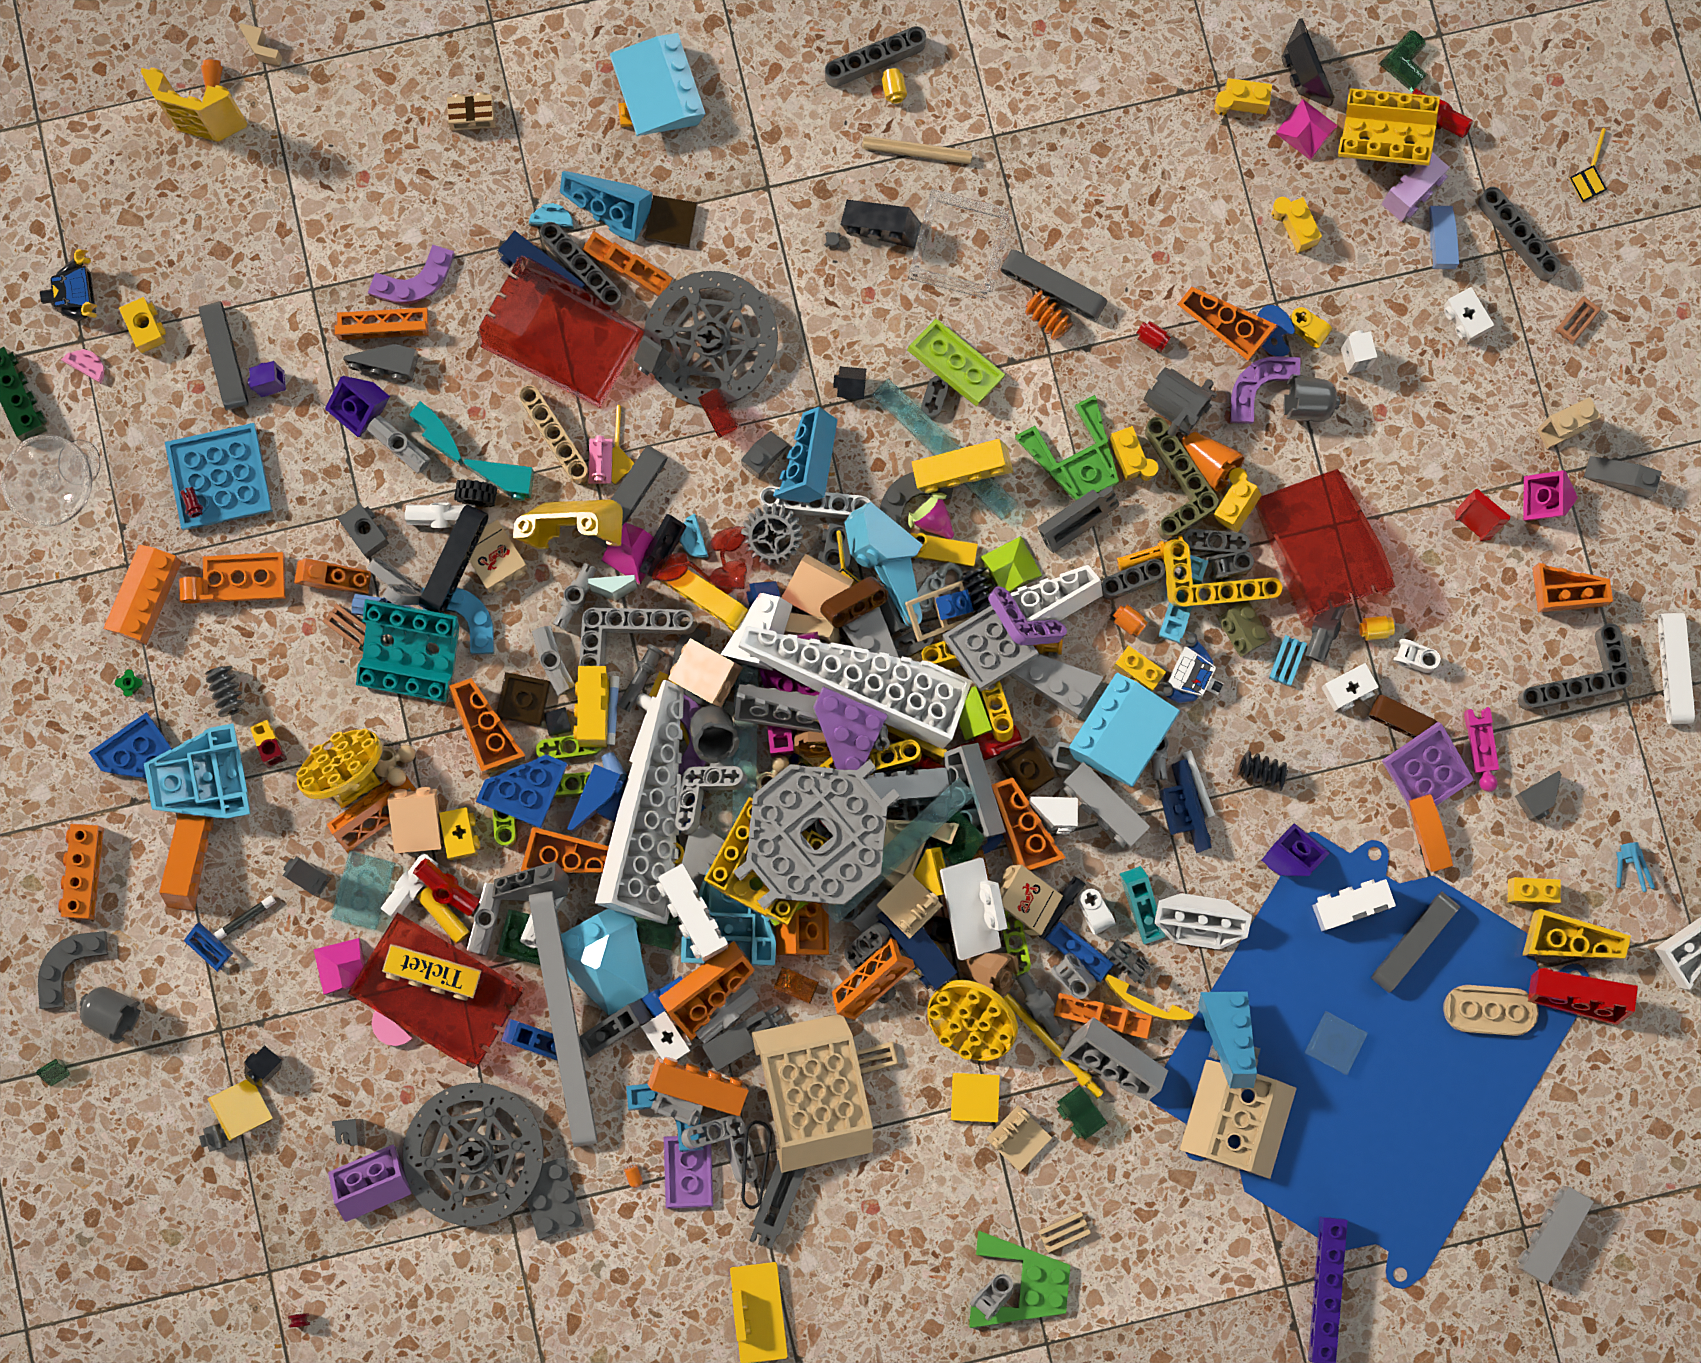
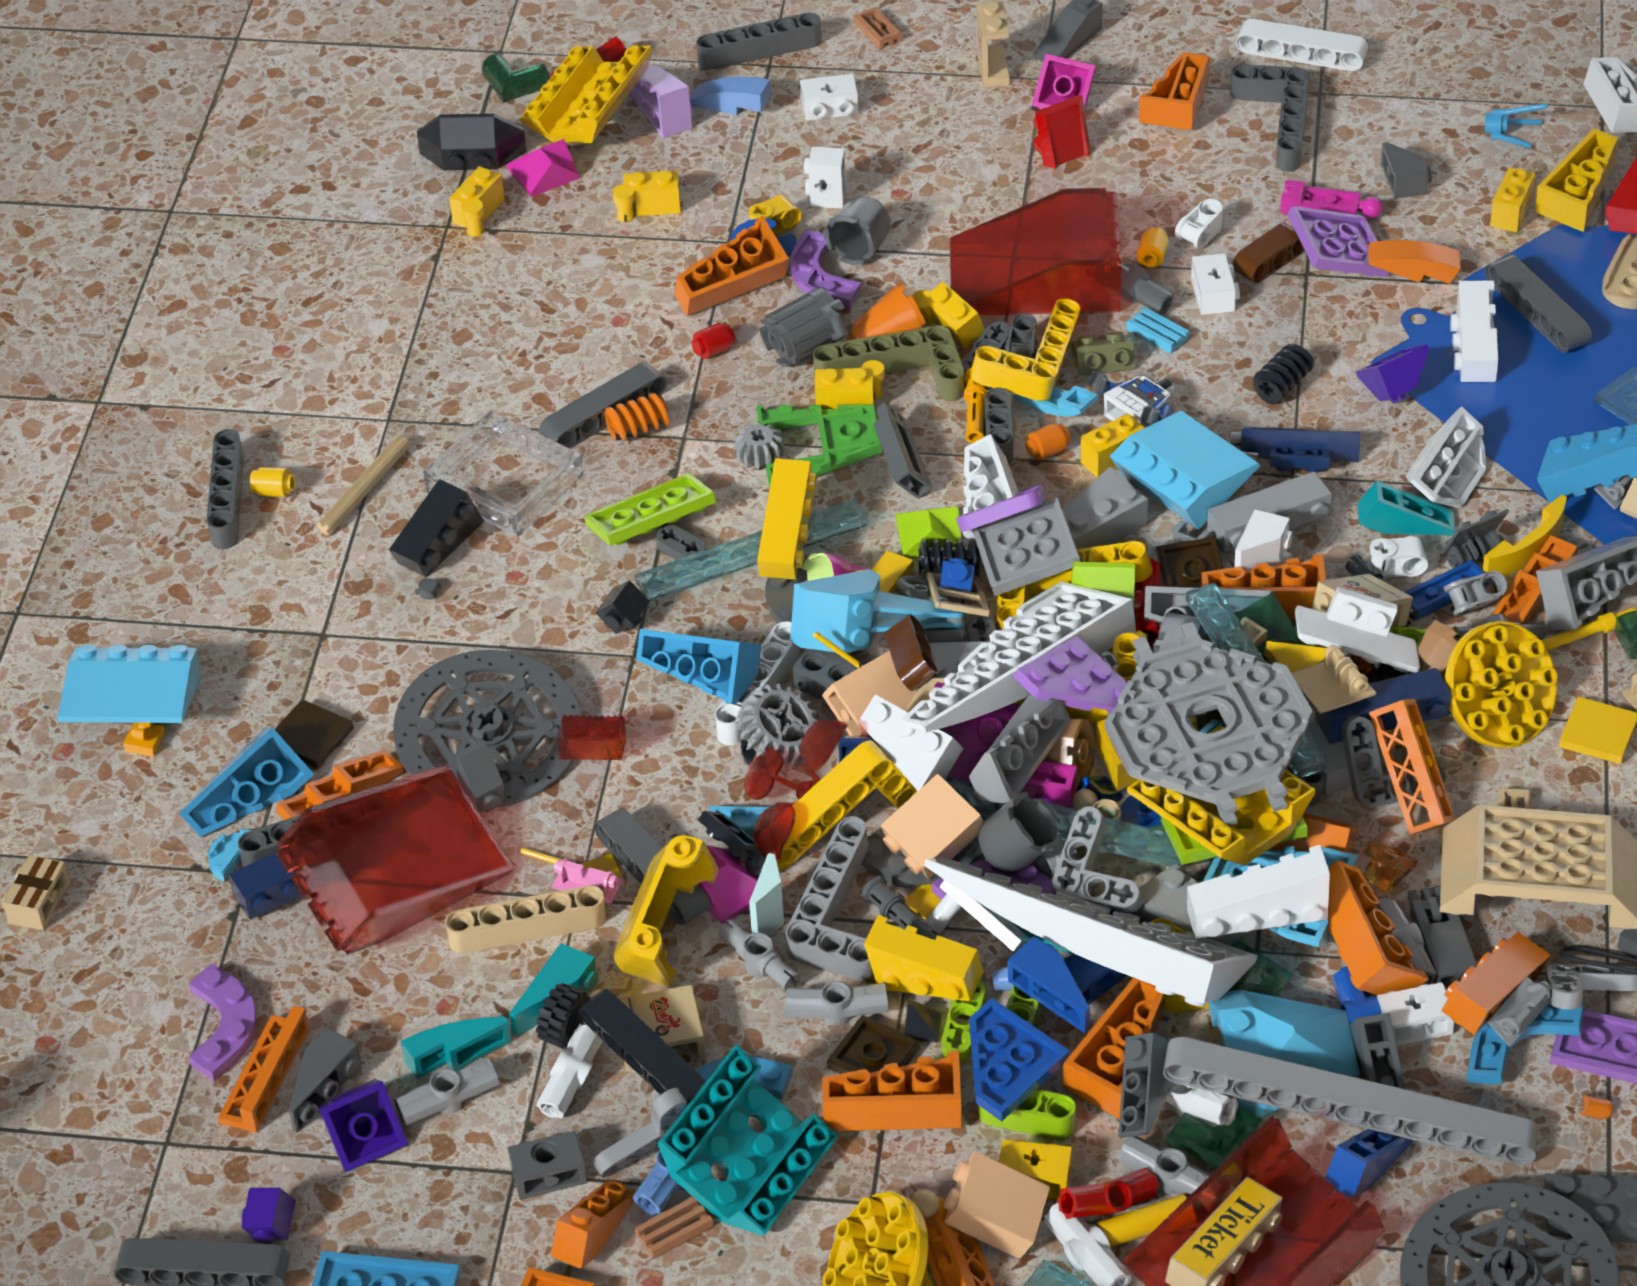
camera: 65 degrees left, 35 degrees down
(763, 454) = (670, 720): dark grey slope -> none
(1043, 410) = (759, 445): none -> light grey gear

